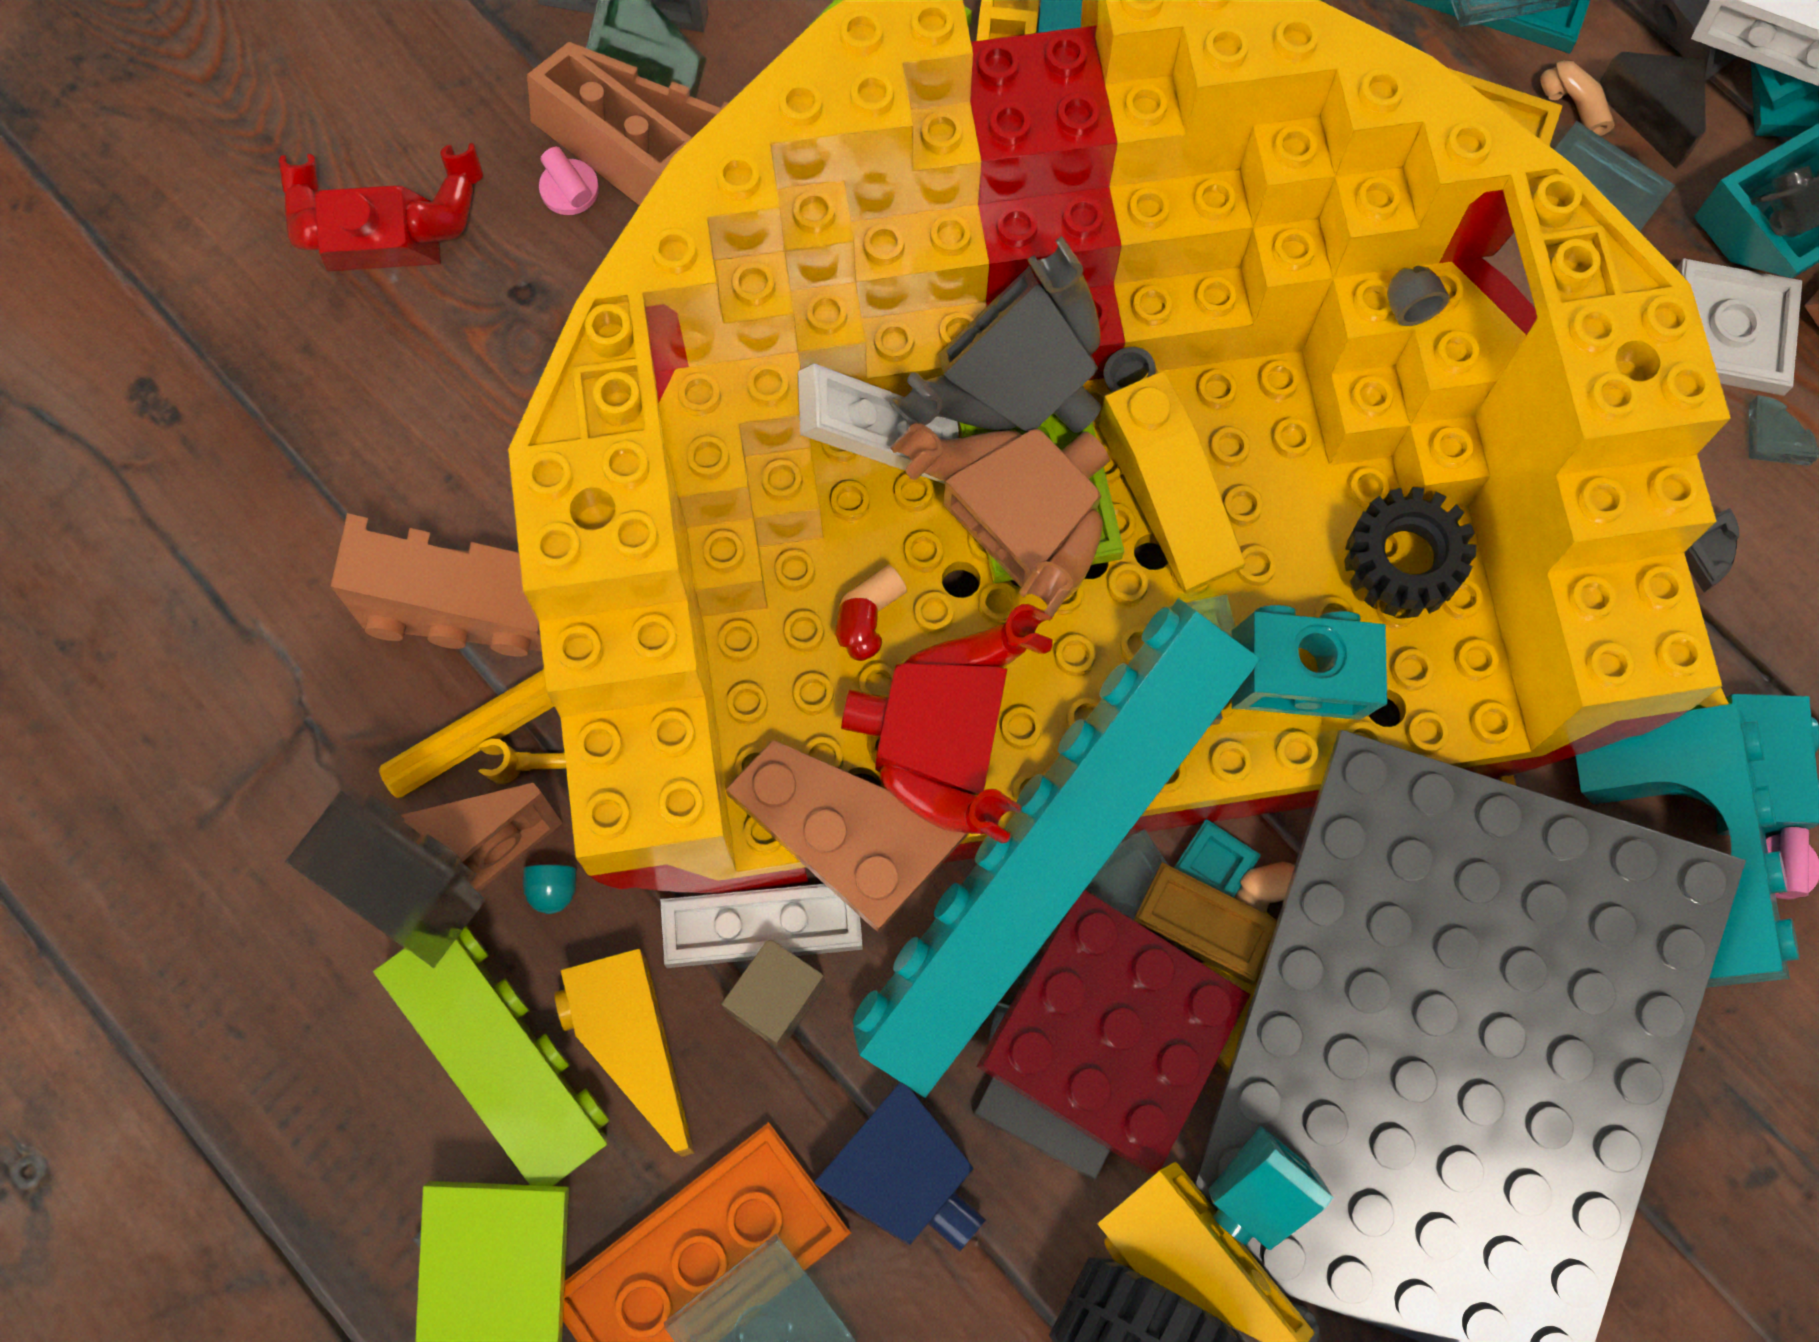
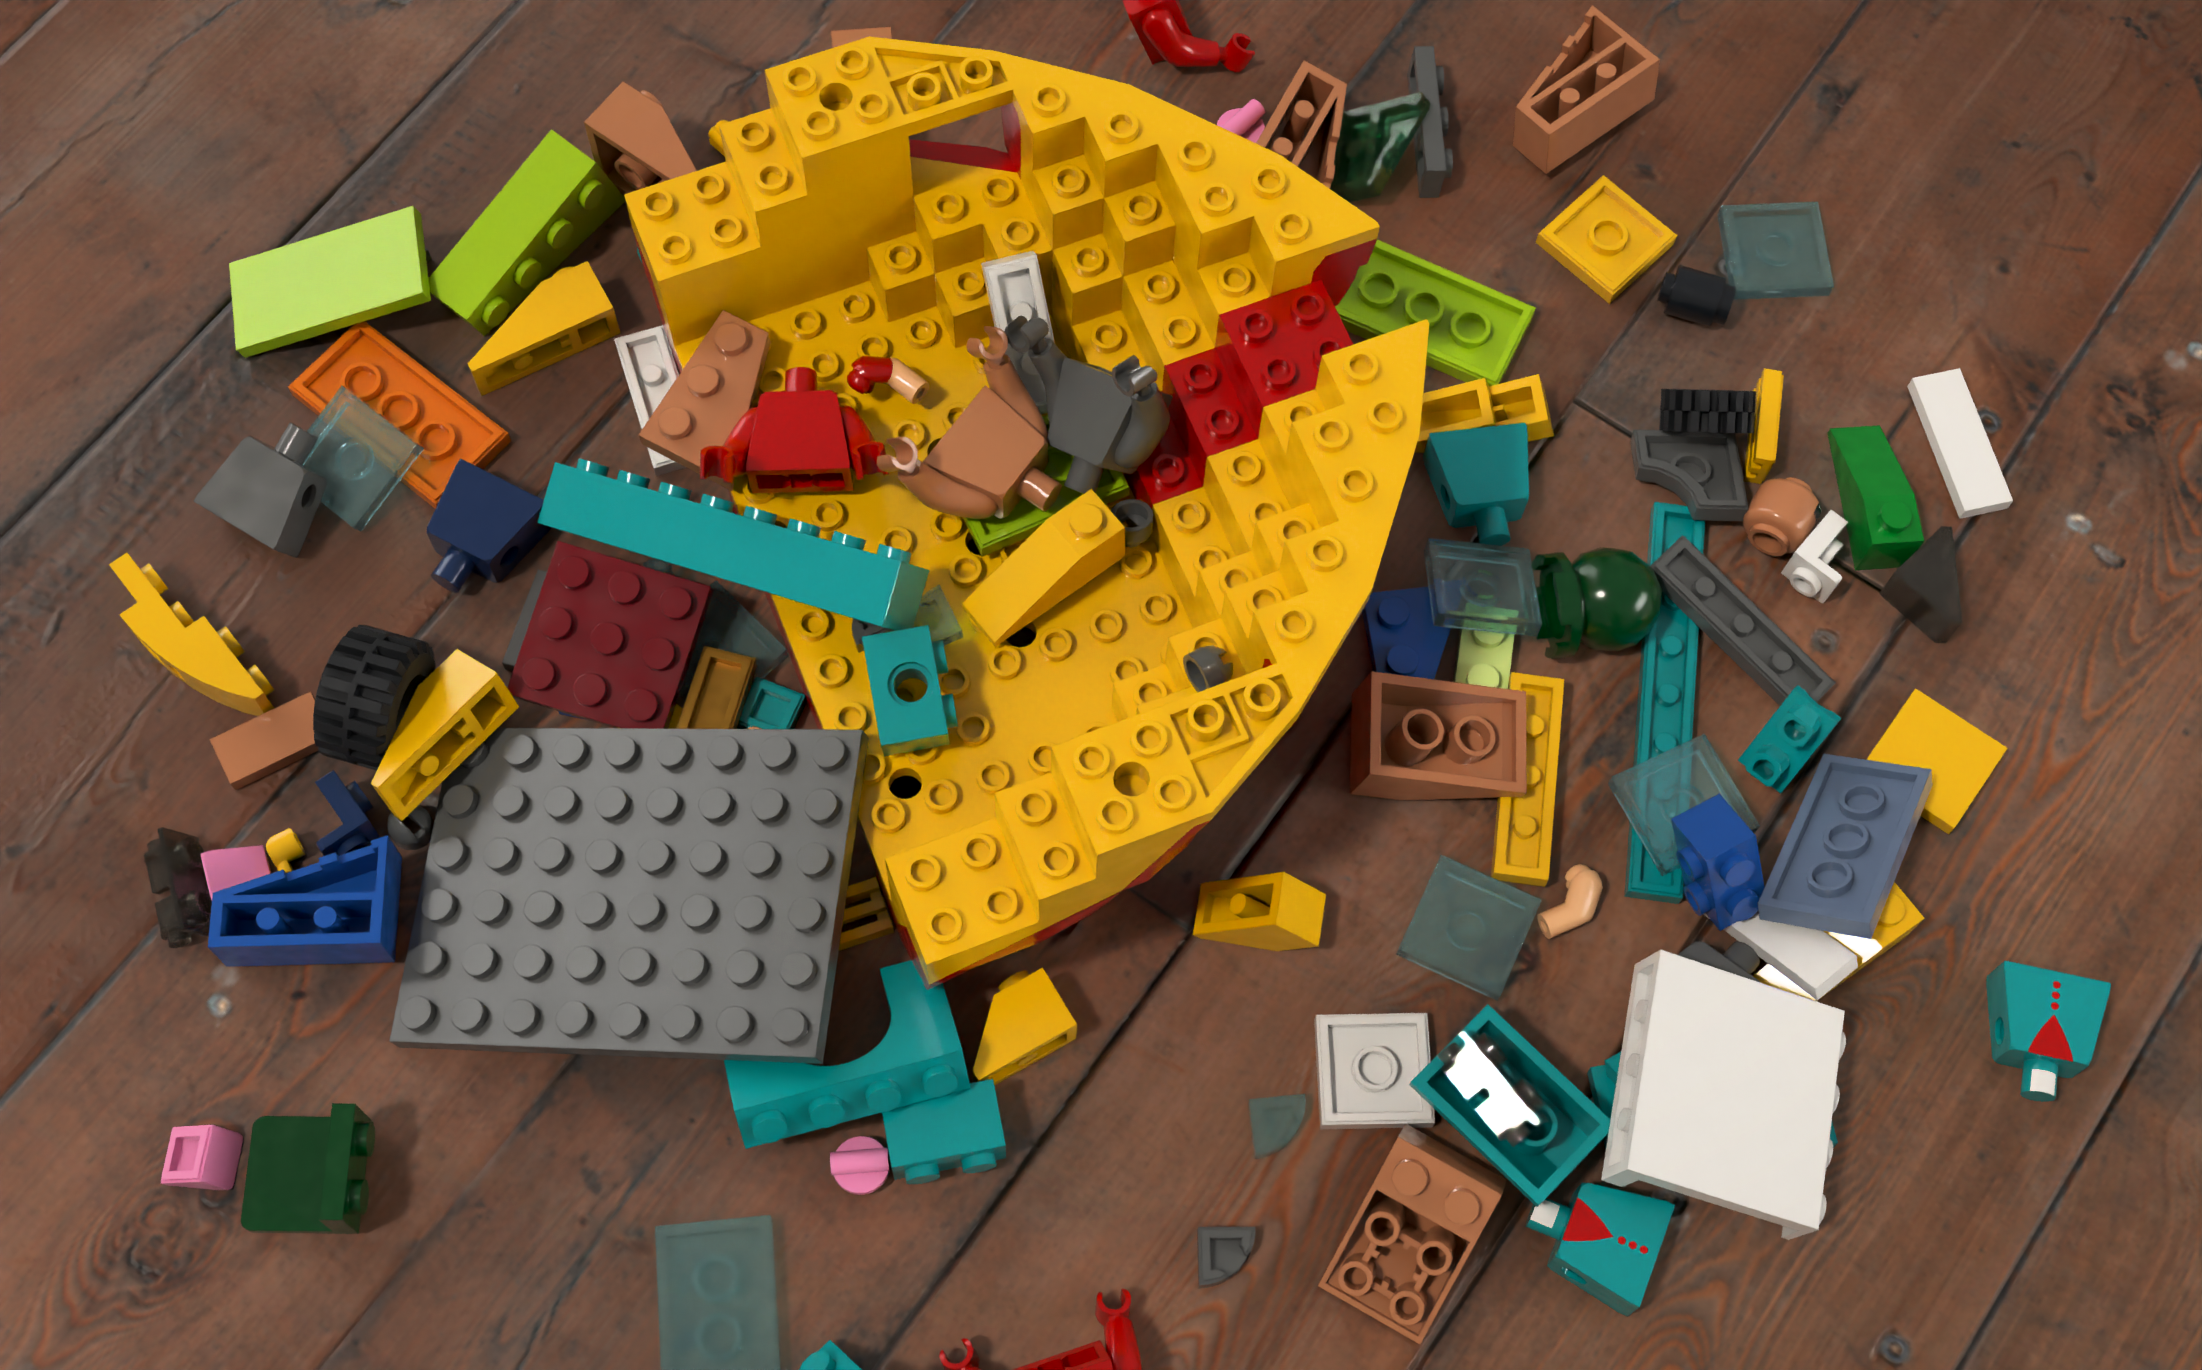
camera: 75 degrees right, 5 degrees down
(381, 873) = (601, 104): clear smoke brick -> none
(774, 994) = (598, 412): dark tan panel -> none
(1267, 1192) = (500, 753): teal slope -> none
(1430, 522) = (1010, 731): black tyre -> none
(1659, 100) = (1588, 973): clear smoke slope -> none
(1714, 551) = (1146, 1073): dark grey tile -> none

